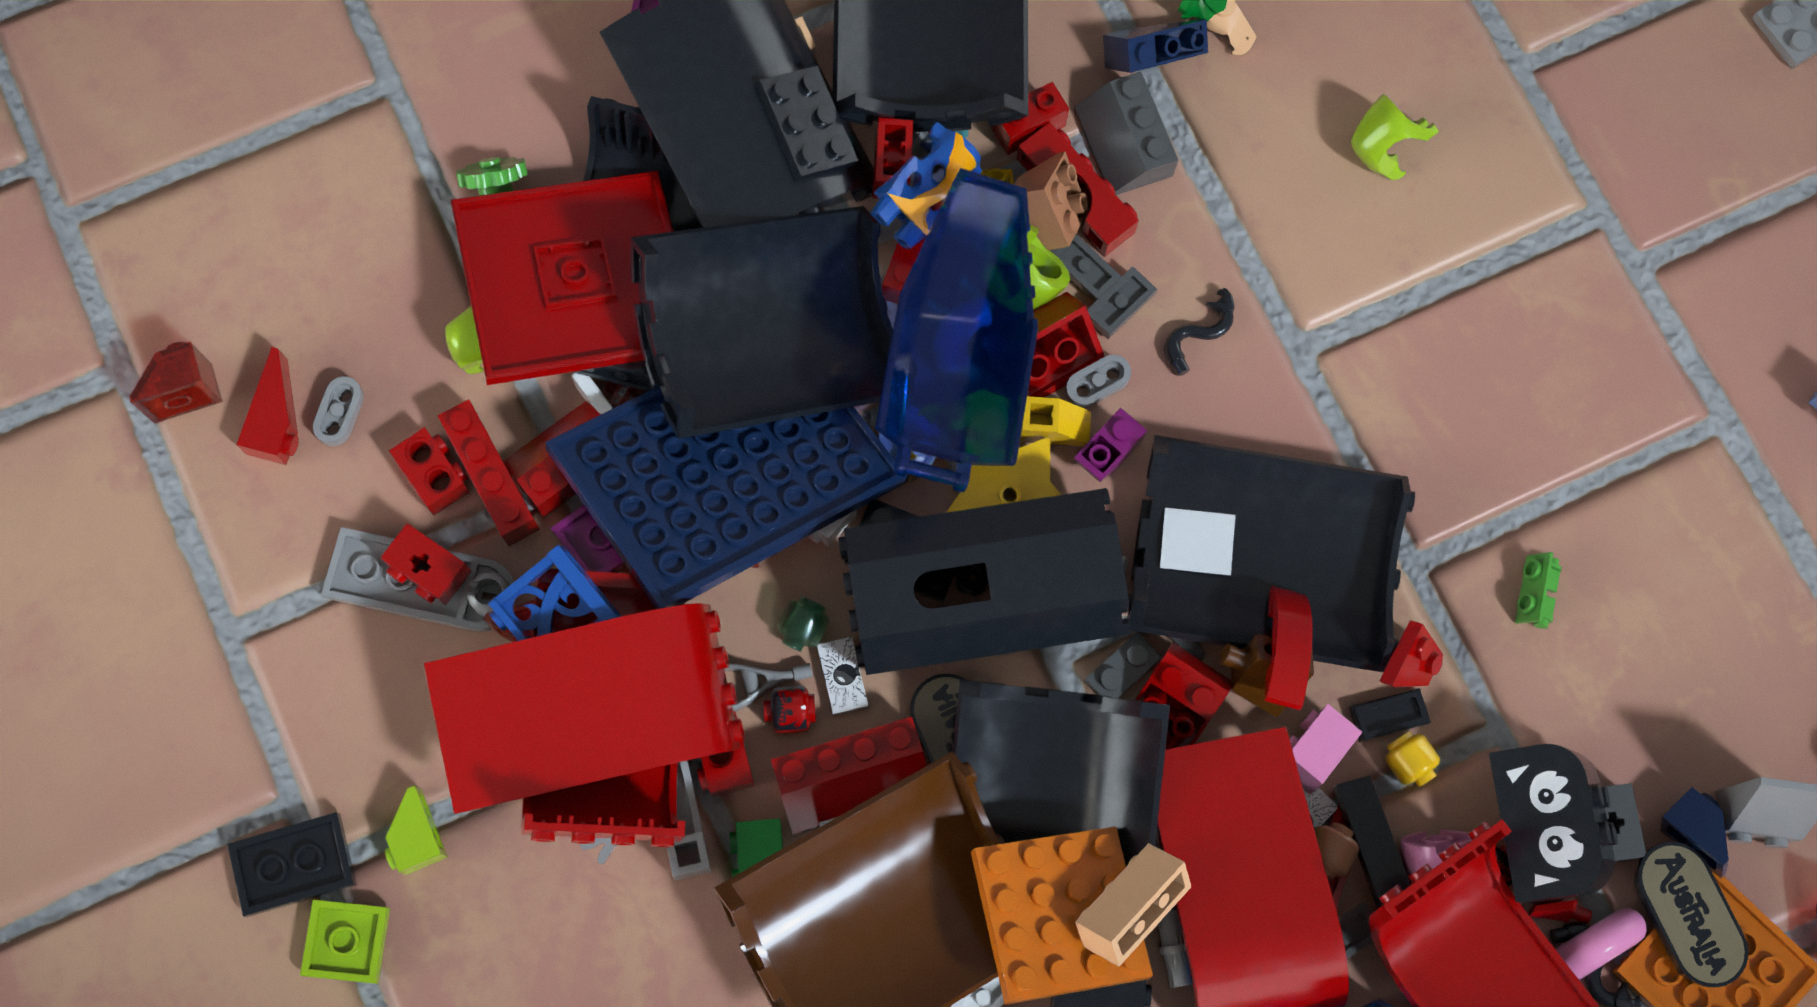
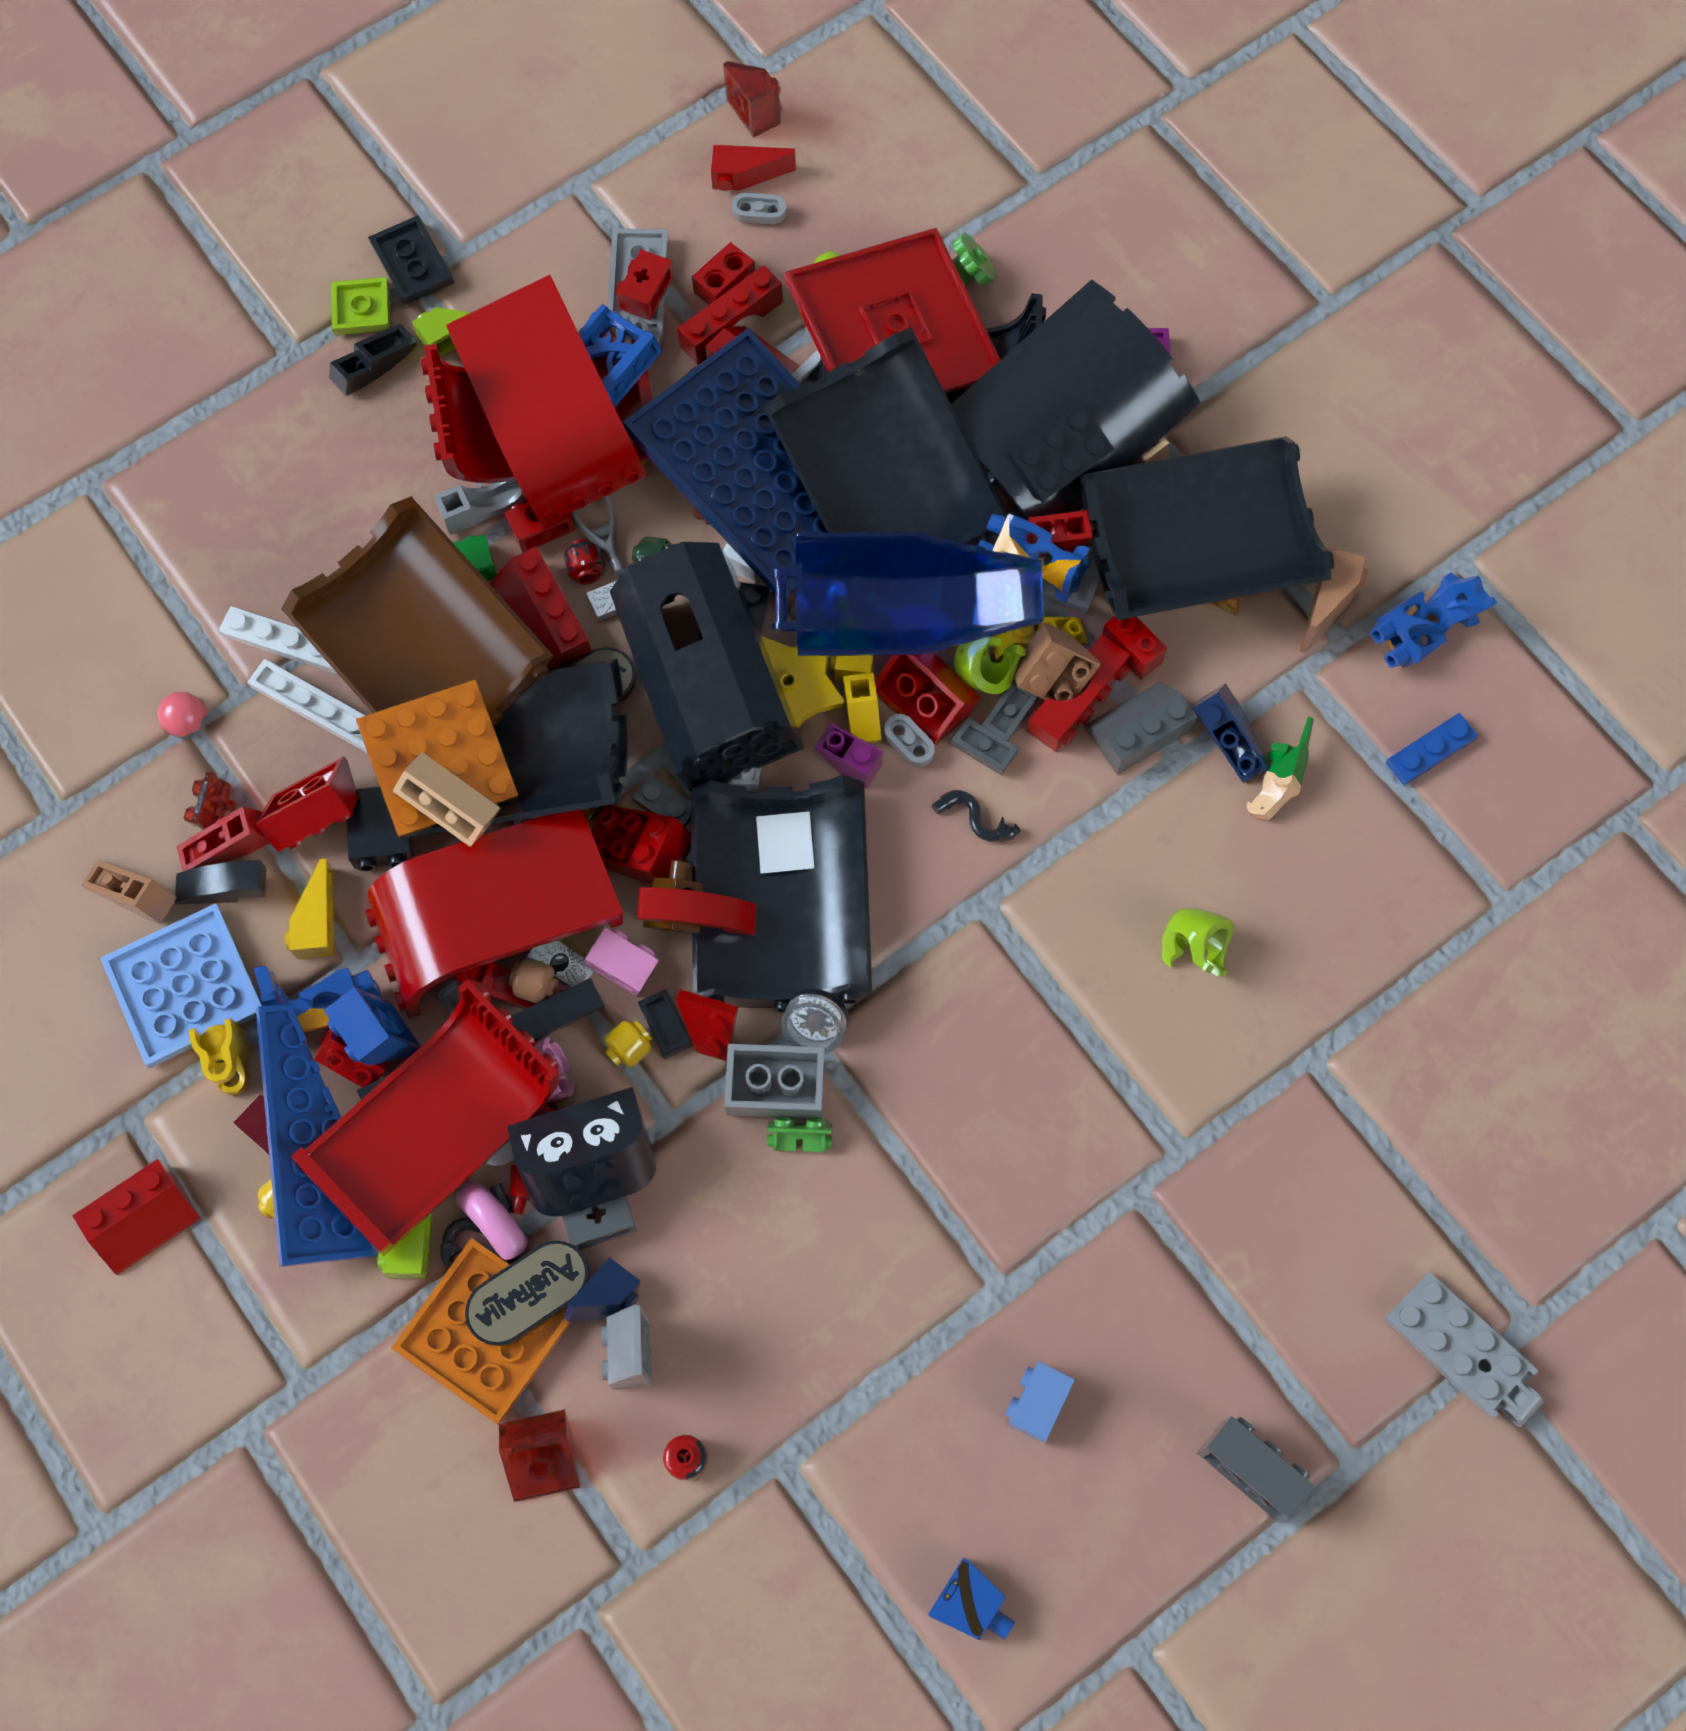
camera: 85 degrees right, 5 degrees down
(431, 936) = (371, 359): none -> black slope
(1426, 545) = (815, 1020): none -> clear piece
(1485, 602) = (774, 1081): none -> light grey brick

